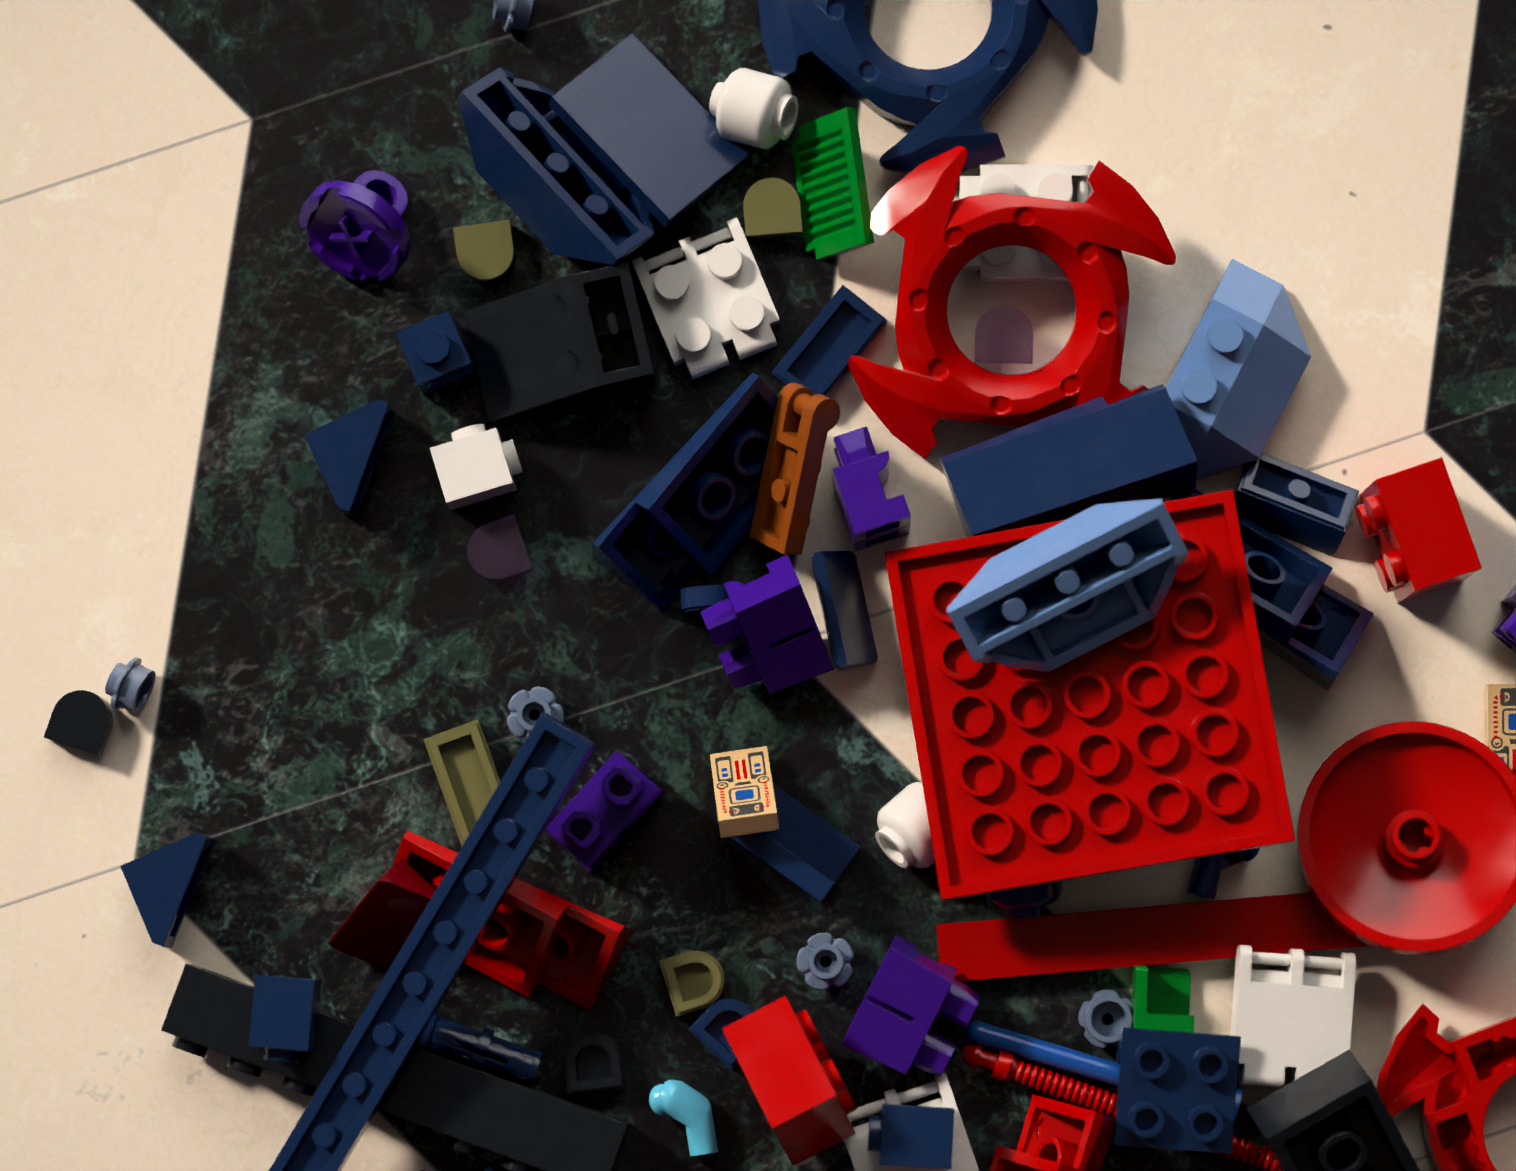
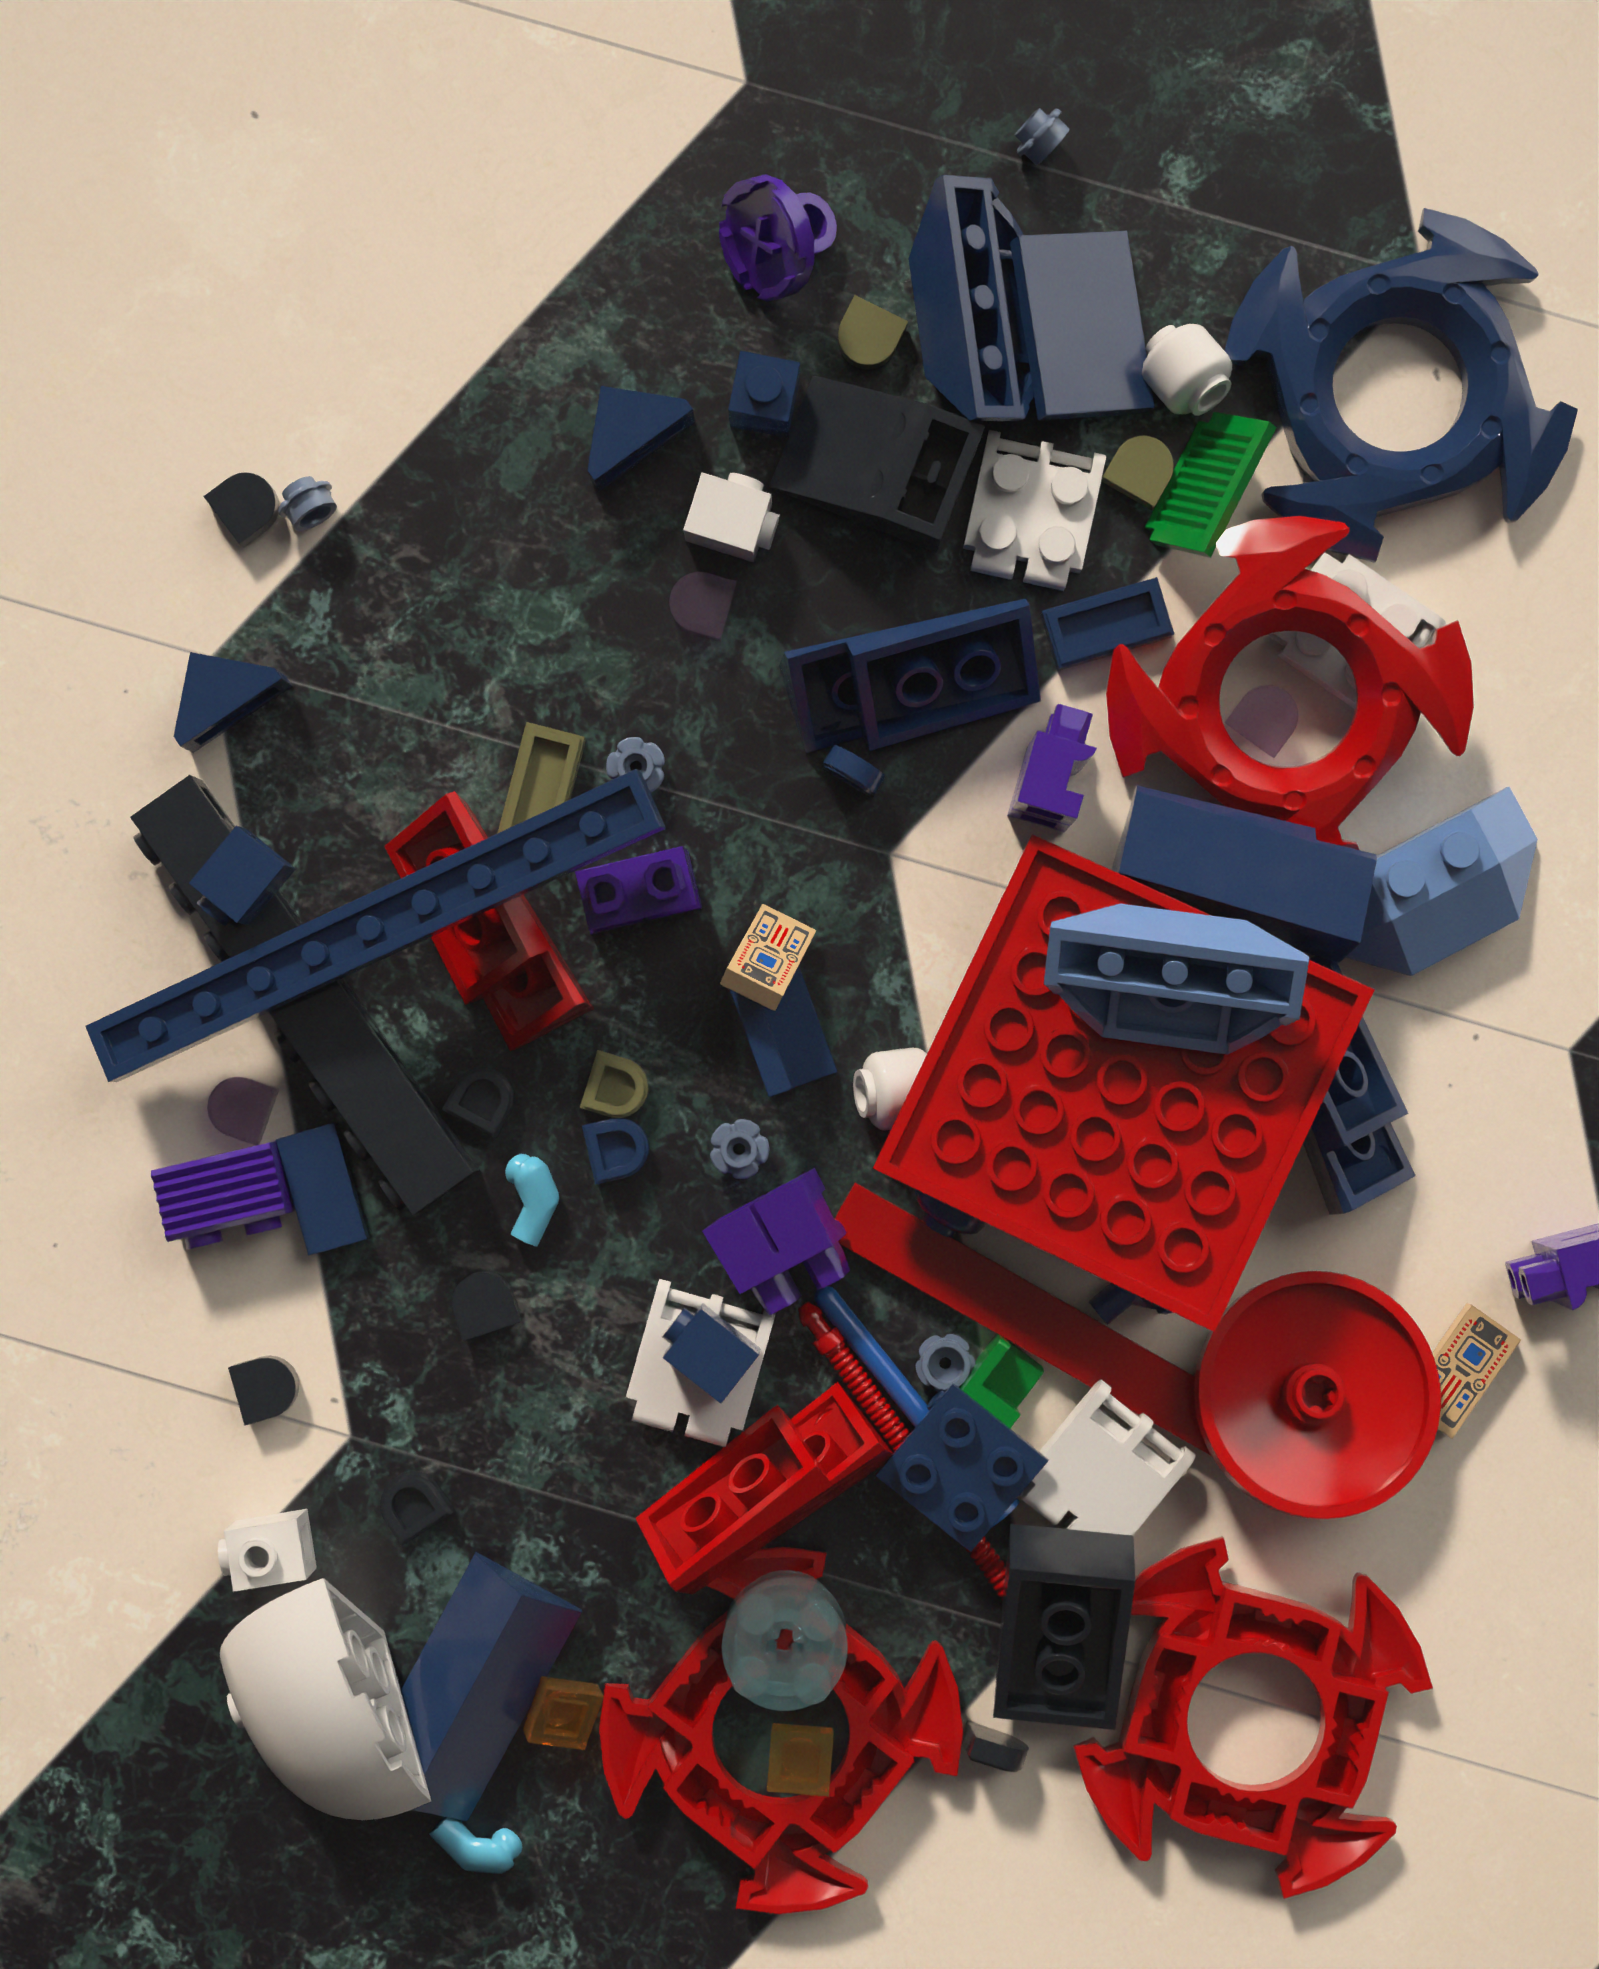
camera: 30 degrees right, 5 degrees up
(384, 916) = (387, 850): dark red slope -> none
(442, 1038) = (394, 1021): dark blue pin -> none
(779, 630) = (894, 836): dark purple hips -> none
(792, 468) = (1003, 705): dark orange plate -> none
(792, 1079) = (635, 1225): red brick -> none
(844, 609) = (963, 859): dark blue slope -> none
(1295, 503) = (1416, 1036): dark blue slope -> none
(1417, 531) = (1507, 1133): red brick -> none

